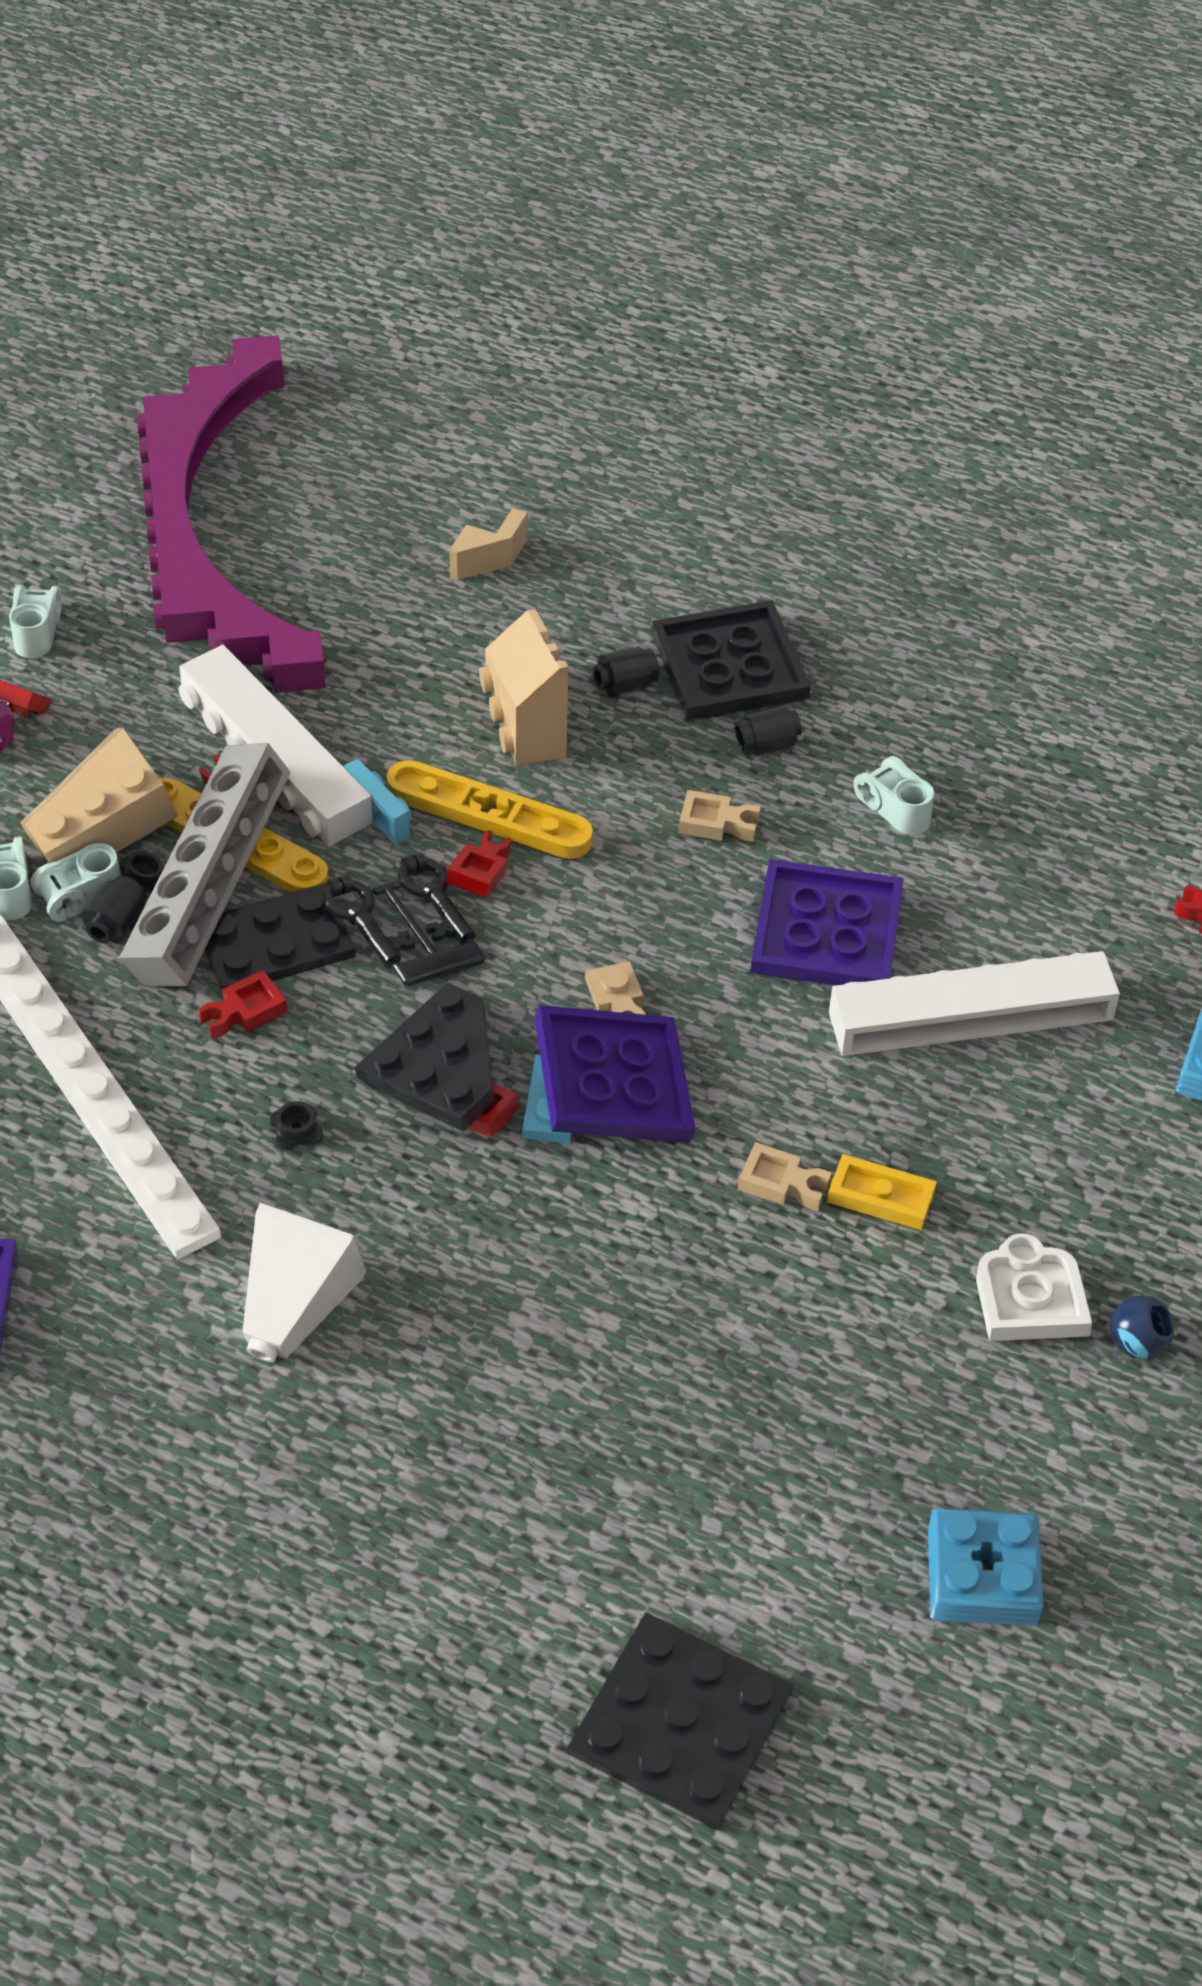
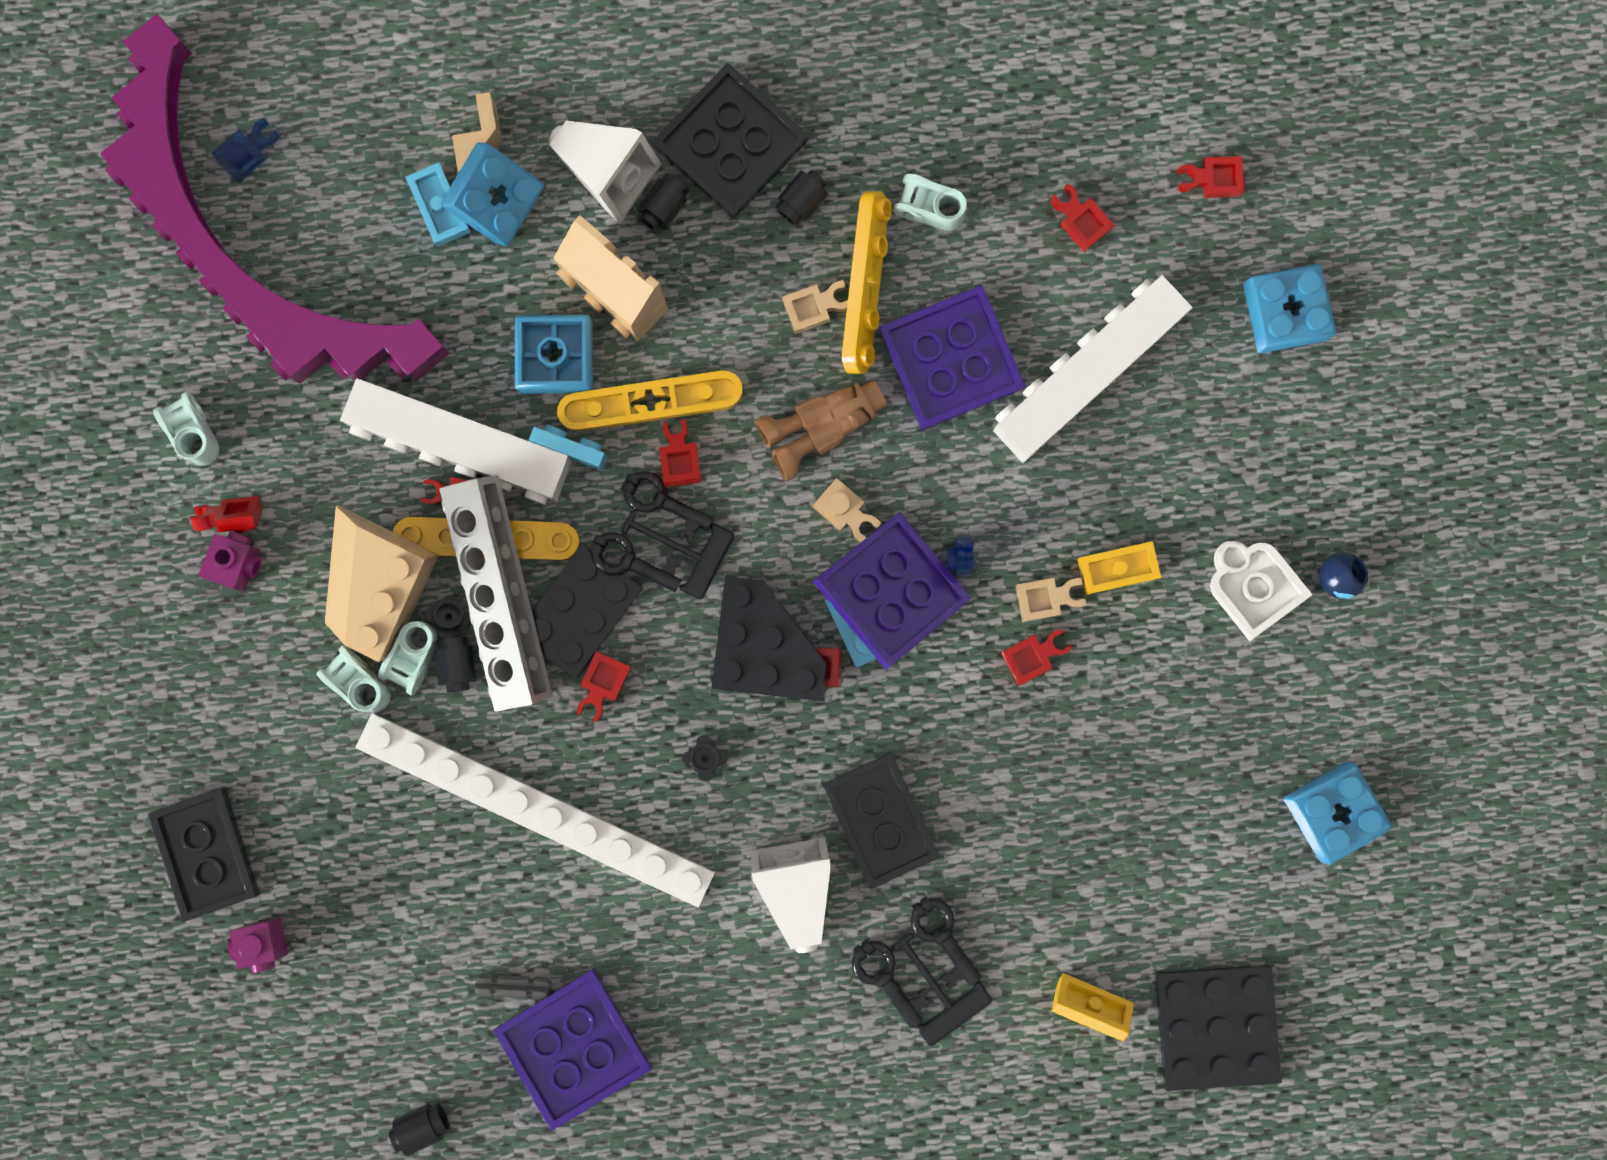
camera: 30 degrees left, 35 degrees up
(268, 465) = (242, 154): none -> clear blue plate
(373, 1524) = (955, 1013): none -> black piece
(410, 576) = (429, 189): none -> medium azure plate
(424, 723) = (536, 337): none -> dark azure brick
(438, 1281) = (880, 820): none -> black plate
(459, 606) = (470, 198): none -> dark azure brick
(542, 1598) = (1093, 1007): none -> yellow plate
(598, 614) = (608, 161): none -> white slope
(650, 906) = (825, 419): none -> medium nougat piece
(711, 1083) = (961, 557): none -> clear blue plate
(721, 1221) = (1030, 657): none -> red plate
(761, 839) = (865, 280): none -> yellow piece
(1049, 885) = (1084, 222): none -> red plate

